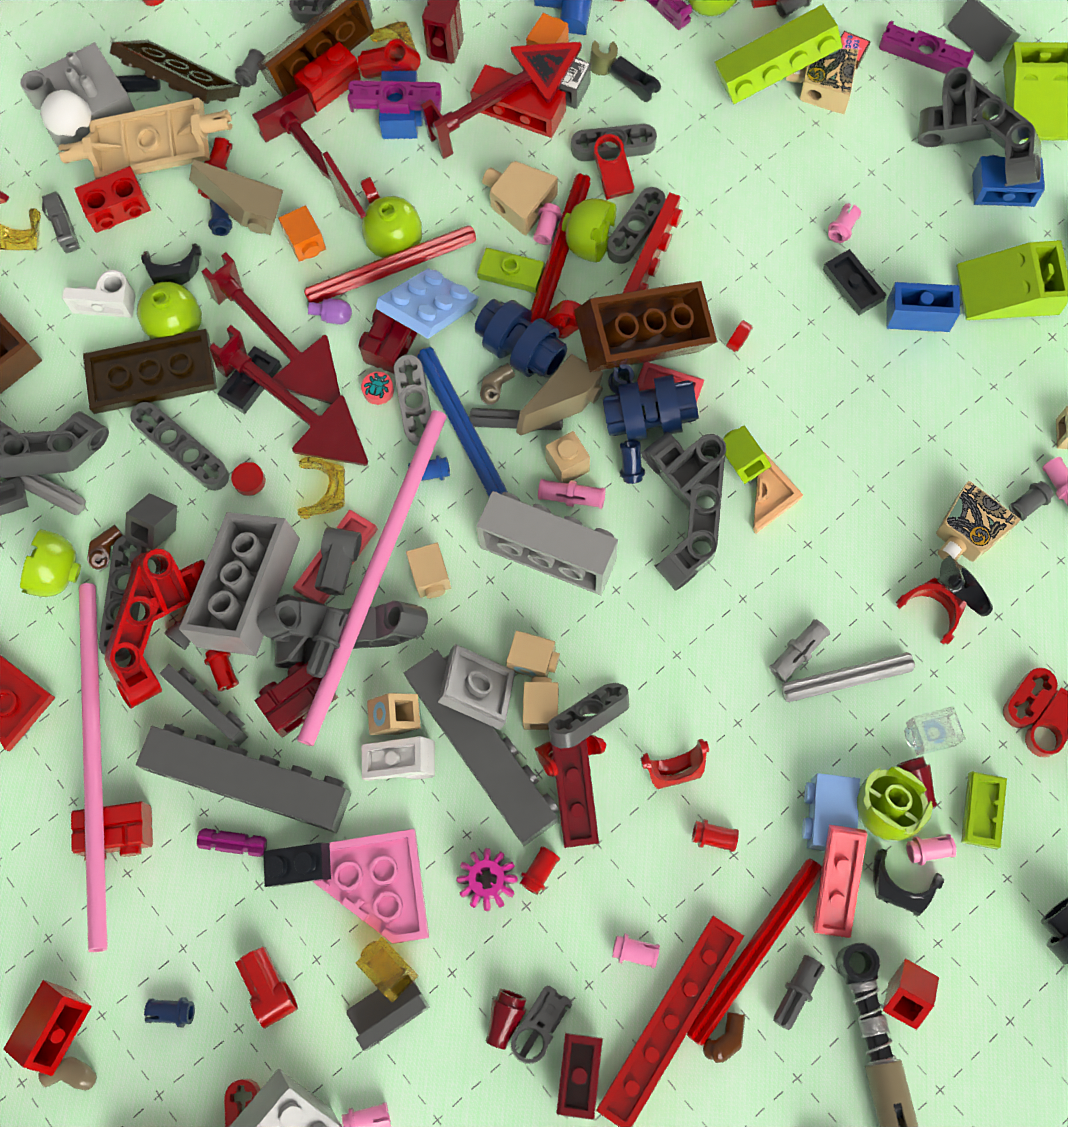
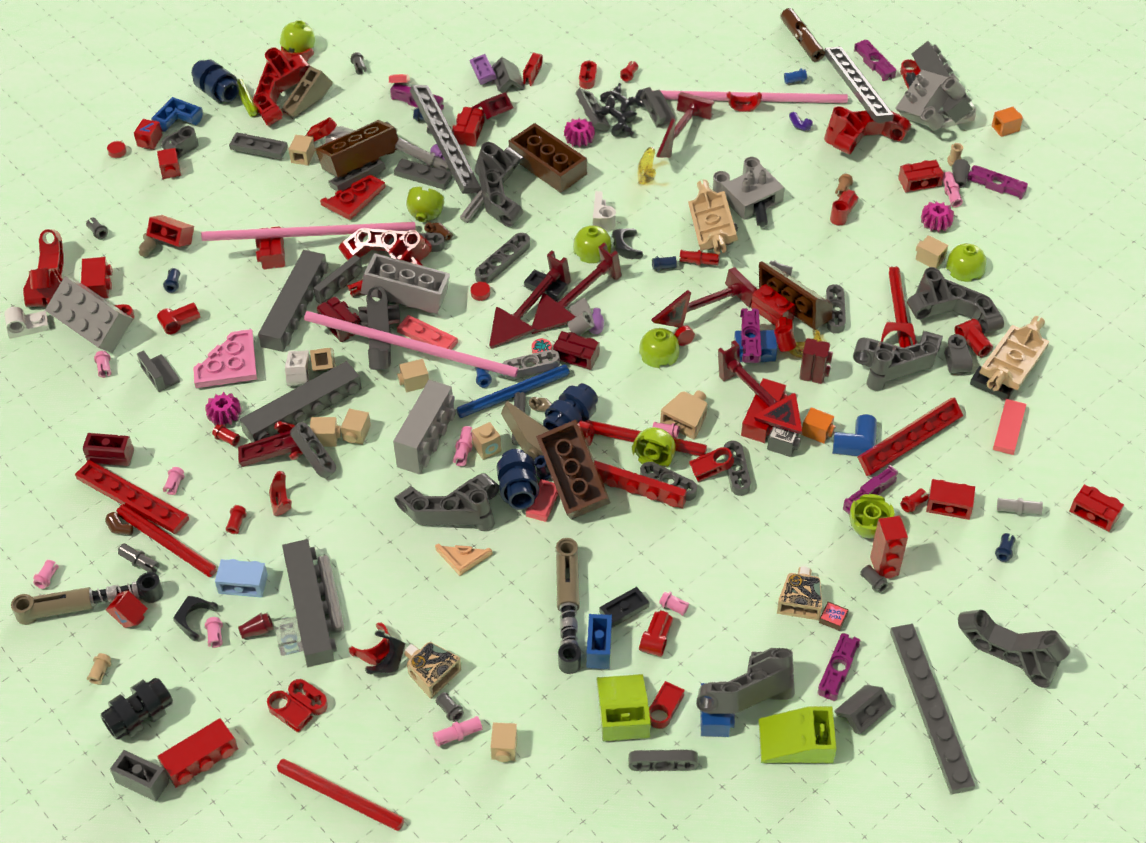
camera: 85 degrees right, 20 degrees down
(60, 221) = (652, 190): dark grey piece -> none
(65, 112) = (724, 176): white hair -> none
(112, 199) = (671, 211): red brick -> none
(149, 371) = (551, 232): dark brown plate -> none
(150, 521) = (450, 245): dark grey brick -> none
(175, 70) = (768, 228): dark brown plate -> none
(231, 842) = (259, 299): magenta axle -> none
(243, 198) = (670, 267): dark tan slope -> none
(297, 864) = (241, 323): black plate -> none
(302, 233) = (650, 302): orange brick -> none
(326, 642) = (363, 318): dark grey axle -> none
(335, 323) = (583, 319): none -> light grey panel
(335, 495) = (473, 329): clear yellow helmet -> none
(339, 551) = (425, 329): dark grey piece -> none
(386, 968) = (179, 365): clear yellow brick -> none
(390, 264) = (632, 350): axle -> none
(427, 302) = (594, 361): light blue plate -> none
(477, 686) = (334, 394): light grey tile -> none
(505, 1016) = (147, 420): dark red cone -> none
(511, 270) = (630, 411): lime plate -> none
(542, 1019) = (142, 438): dark grey piece -> none
(632, 469) = (484, 469): dark blue pin -> none
(637, 80) = (805, 463): black piece -> none
(739, 336) = (578, 535): red tile -> none
(745, 454) = (485, 533): lime brick -> none
(779, 54) = (809, 554): lime brick -> none
(799, 650) = (358, 573): light grey pin -> none
(839, 881) = (198, 575): coral tile -> none
(853, 349) = (568, 604): none -> piece
(870, 706) = (307, 602): none -> dark grey brick
(893, 804) = (240, 600): lime cylinder -> none
(905, 246) = (655, 638): none -> red piece
(984, 810) = (234, 662): lime plate -> none
(991, 235) = (667, 700): none -> red piece
(1012, 1029) = (99, 668): none -> tan pin

